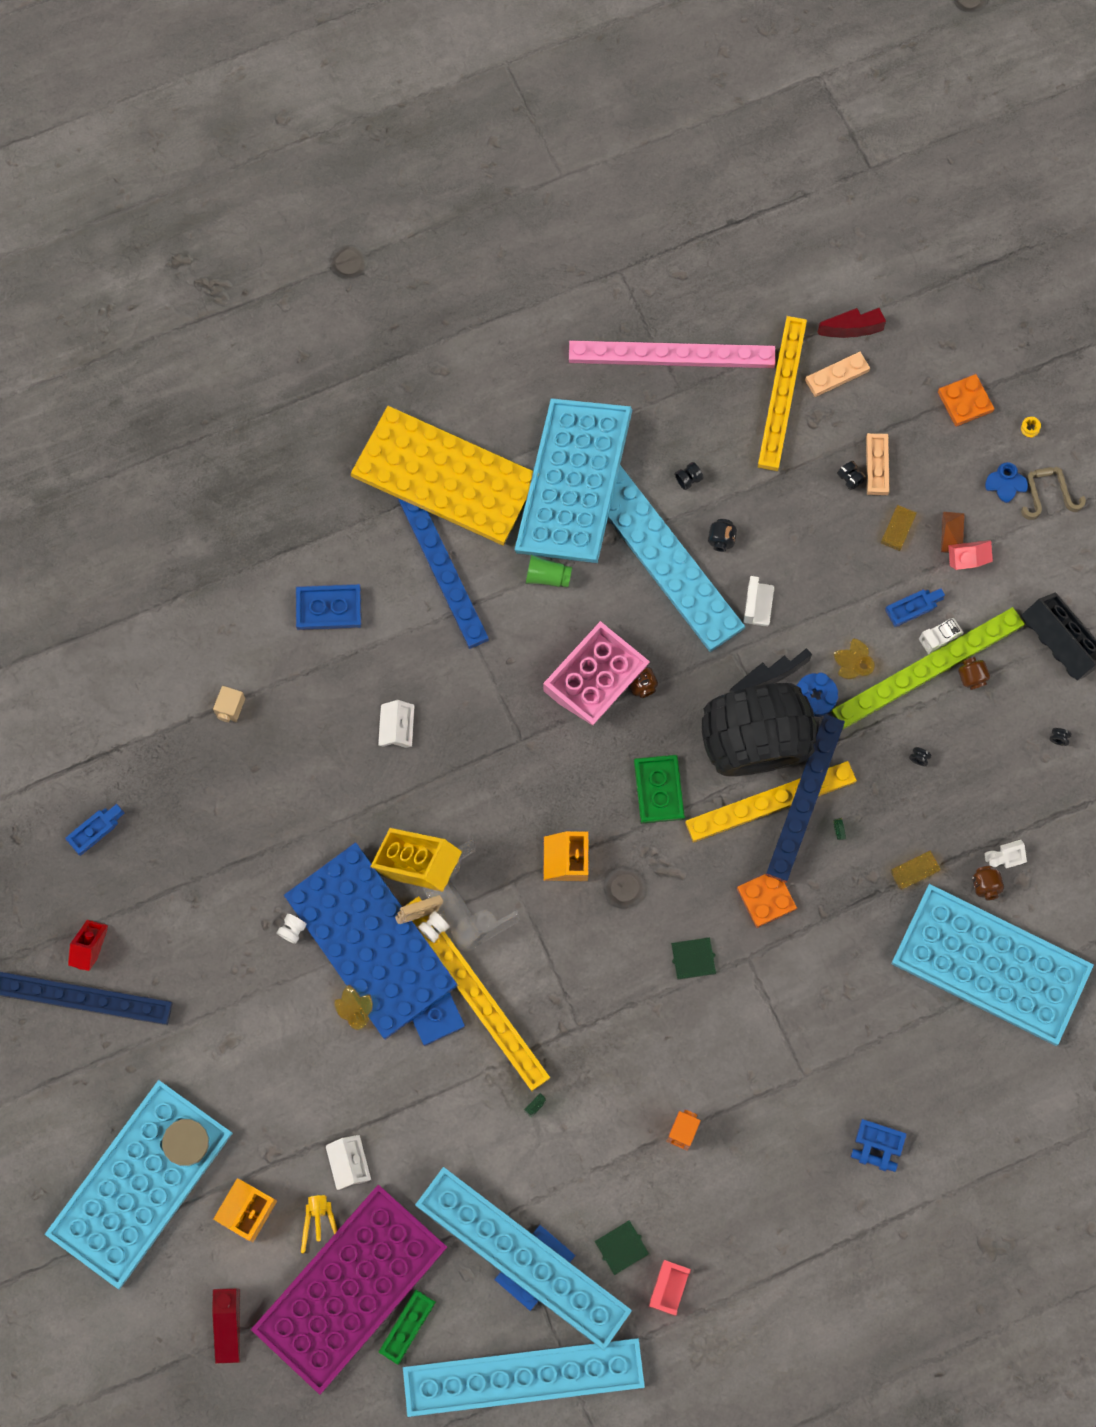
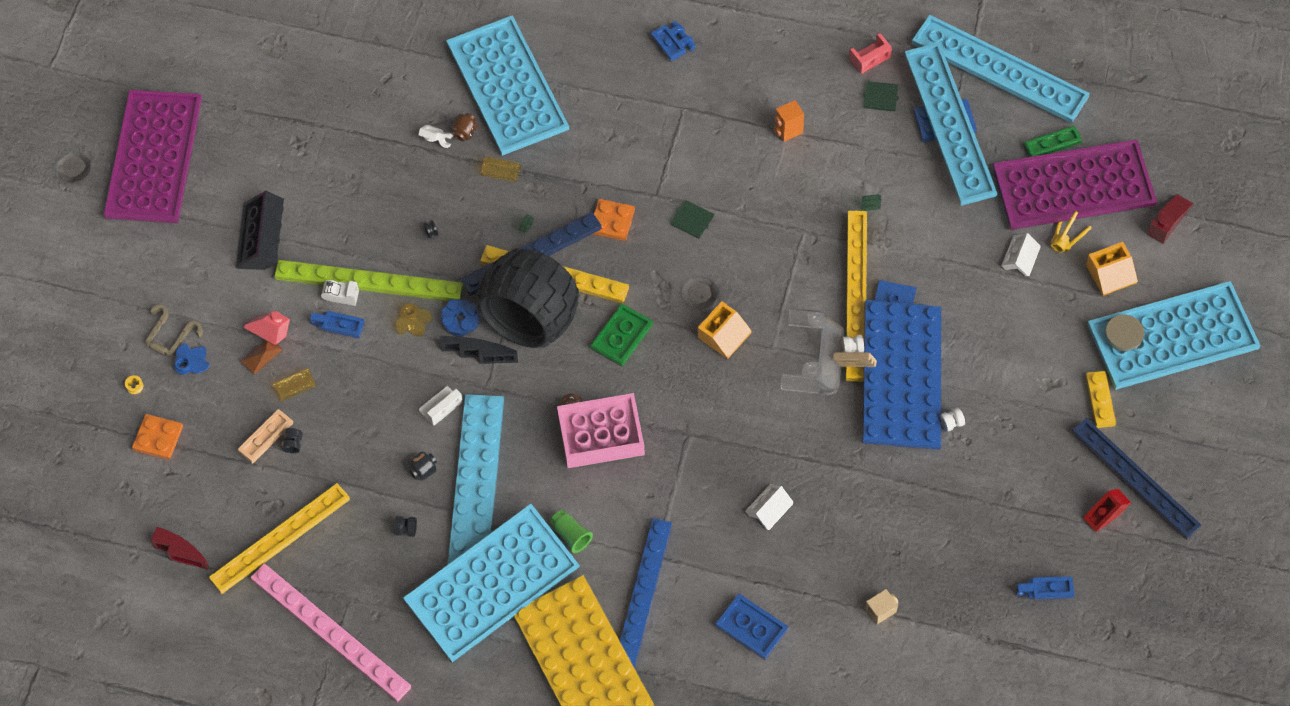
camera: 140 degrees left, 10 degrees down
(167, 1060) = (1100, 399): none -> yellow plate
(354, 1006) = (946, 339): clear yellow plate -> none
(416, 859) = (832, 387): yellow brick -> none
(837, 374) = (226, 524): light nougat plate -> none
(974, 673) = (344, 252): reddish brown head -> none
(1060, 736) = (329, 177): black bush -> none

